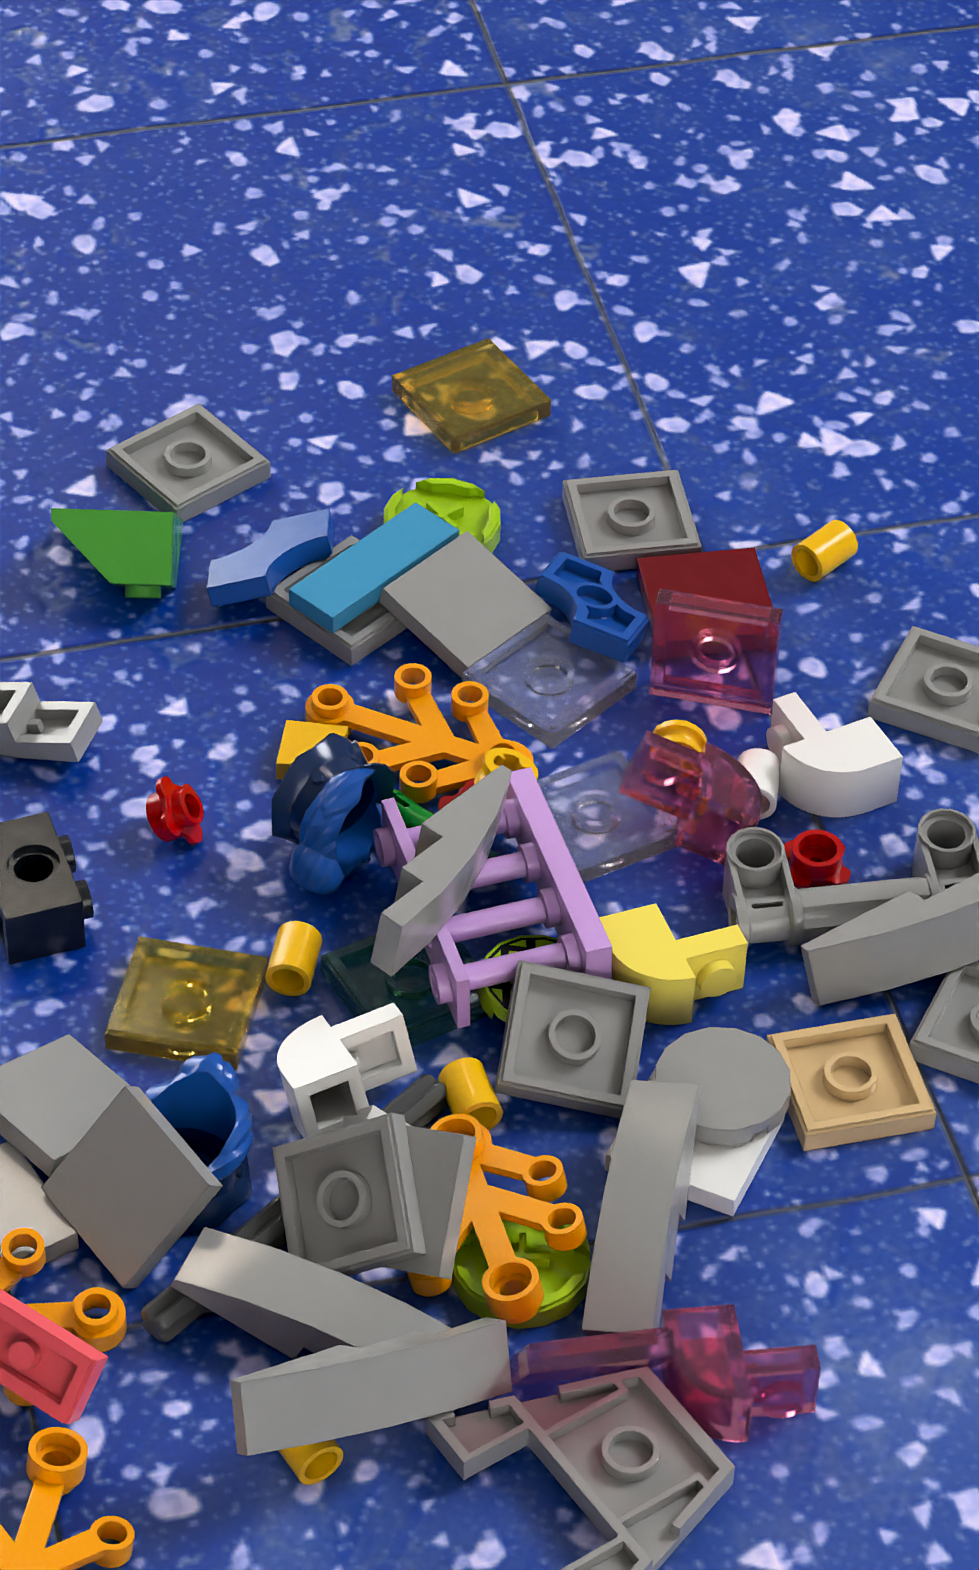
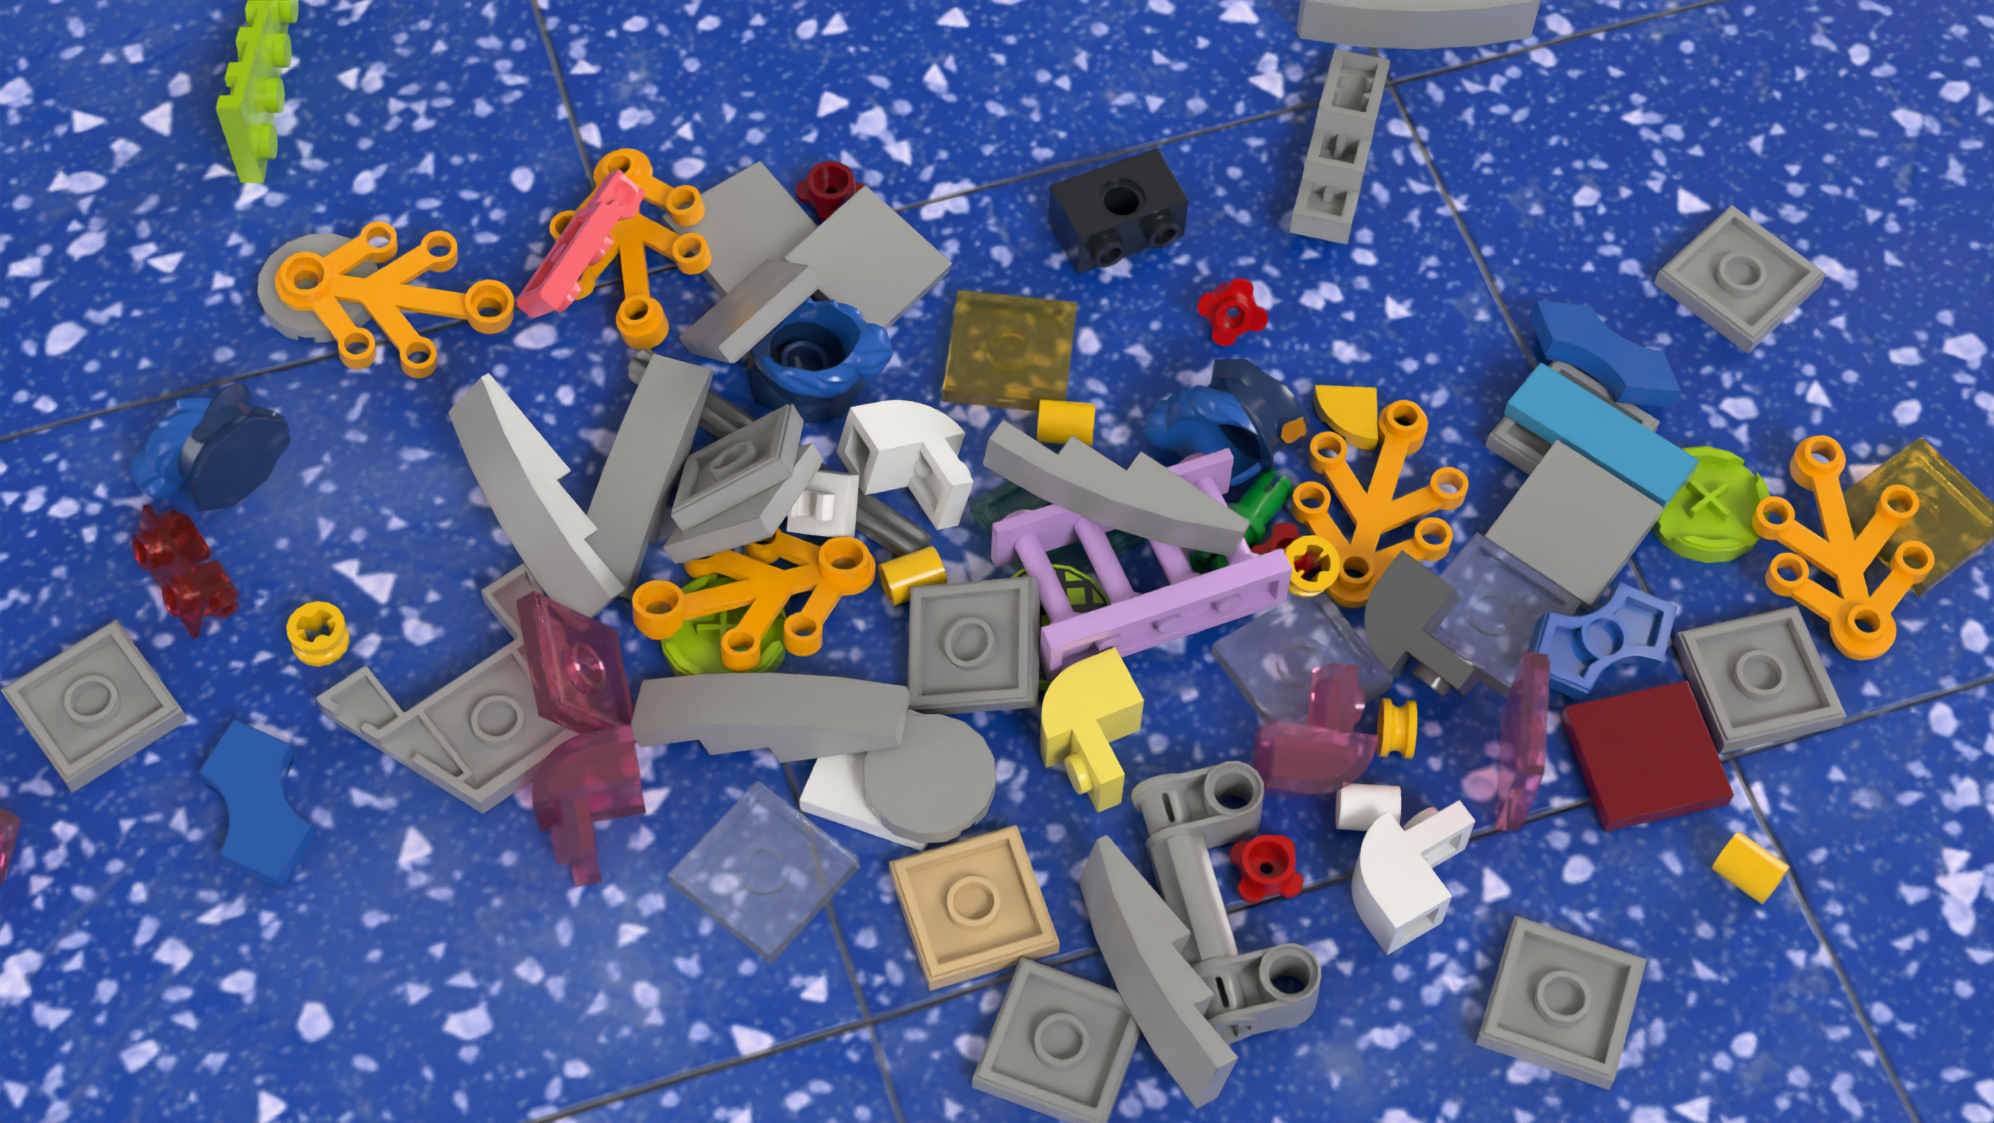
camera: 85 degrees right, 15 degrees up
(127, 546) = (1586, 227): bright green slope -> none
(572, 720) = (1403, 616): none -> dark grey brick
(577, 445) = (1841, 554): none -> light orange plant
(806, 1244) = (764, 871): none -> clear tile

